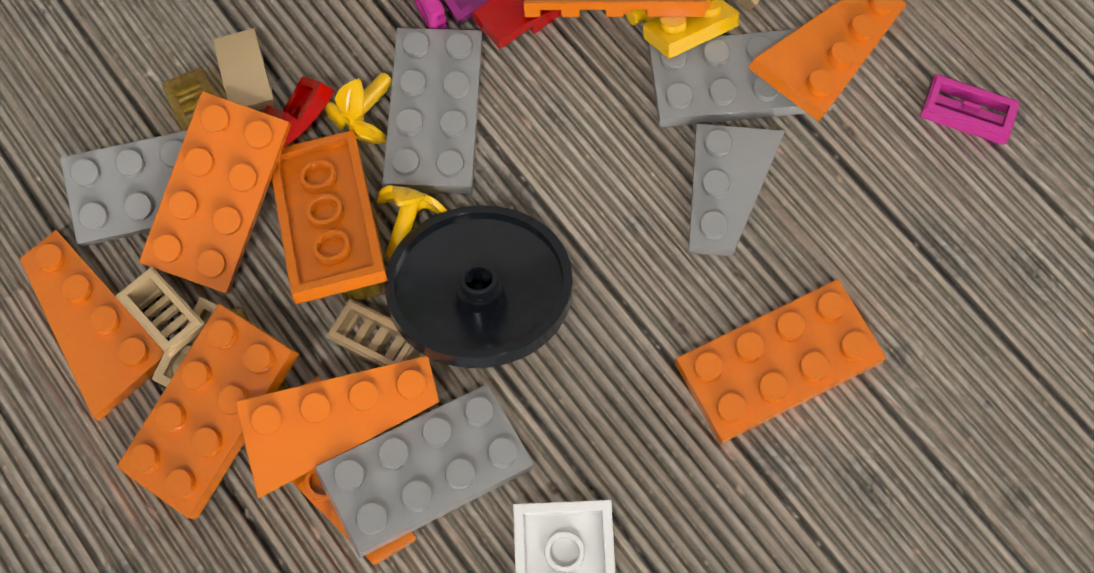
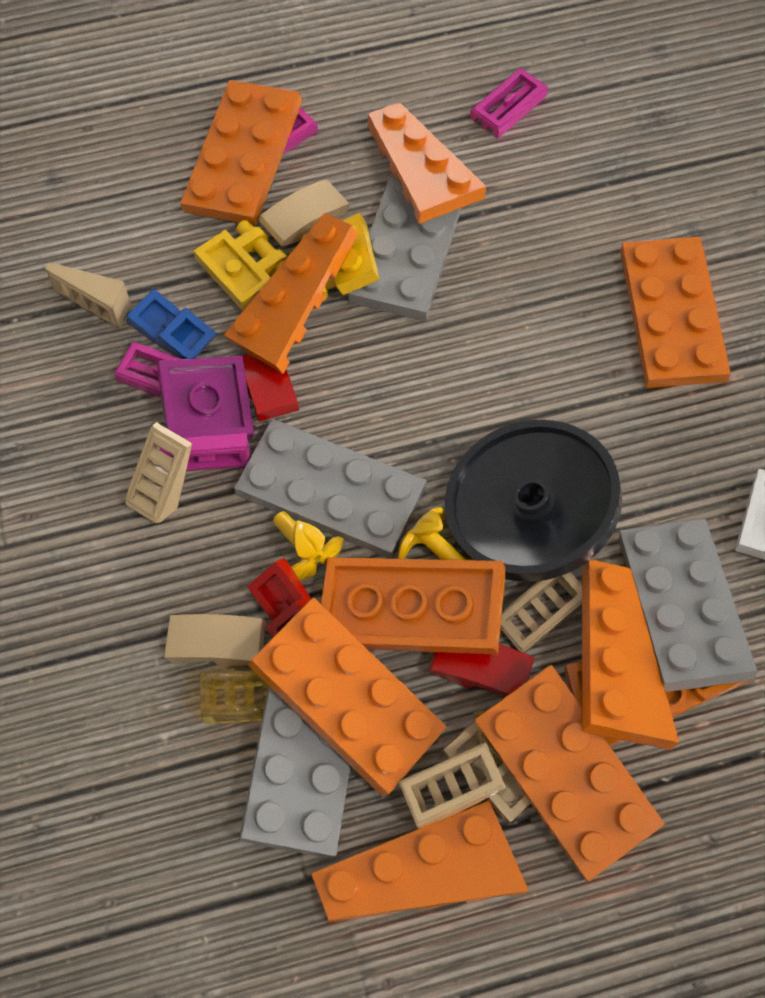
camera: 70 degrees left, 5 degrees down
(294, 324) = (491, 672): none -> red slope
(726, 182) = (504, 289): light grey wing -> none

